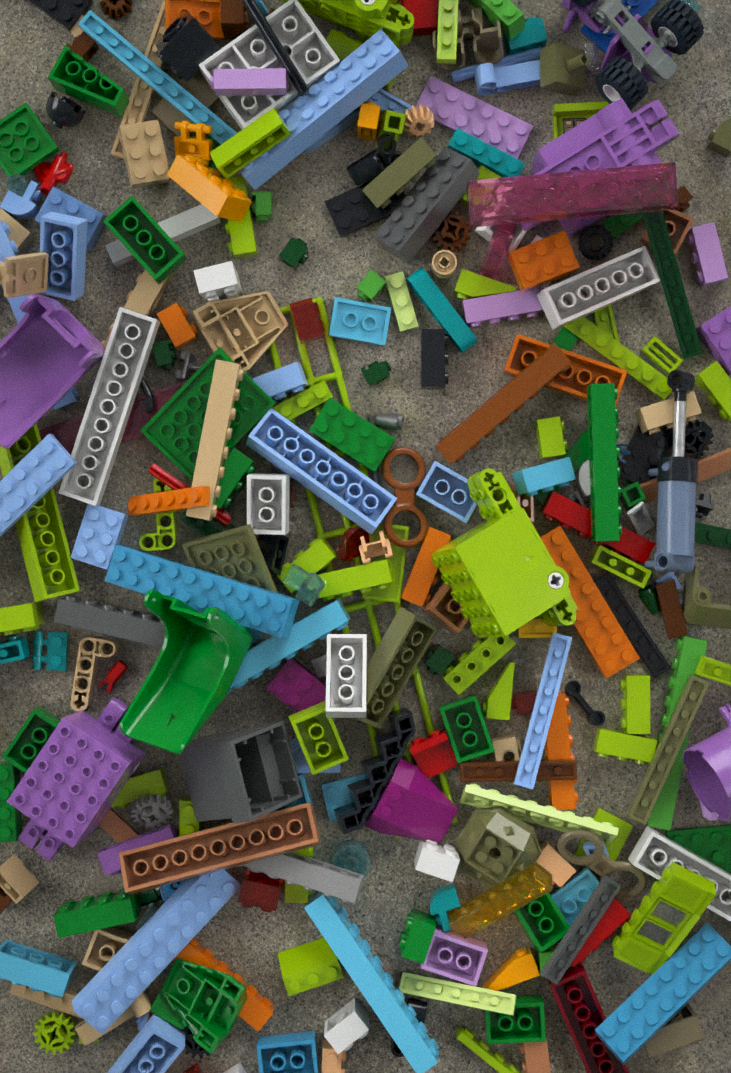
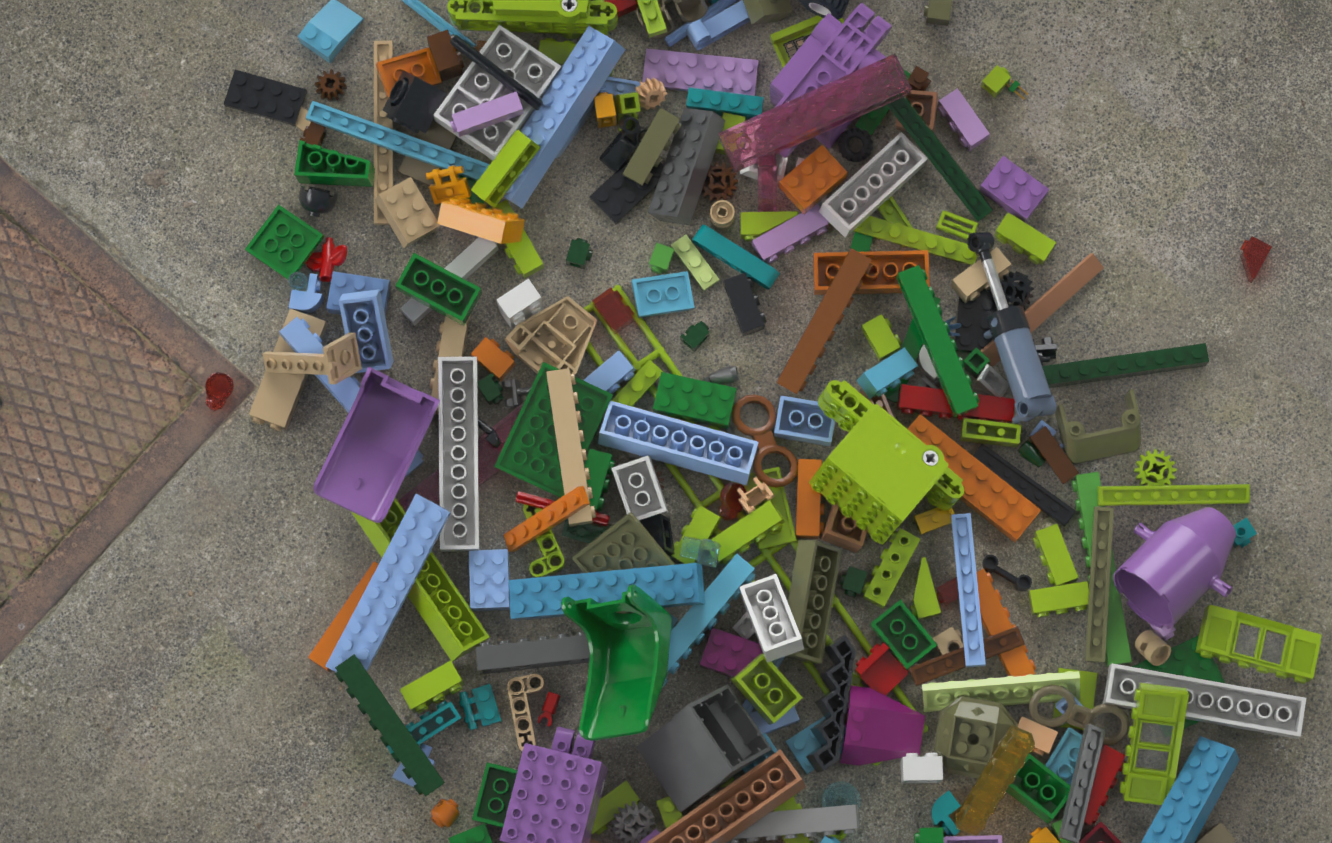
camera: 15 degrees left, 10 degrees down
(263, 206) = (533, 221): bright green brick -> none
(694, 824) = (1152, 647): none -> tan wheel

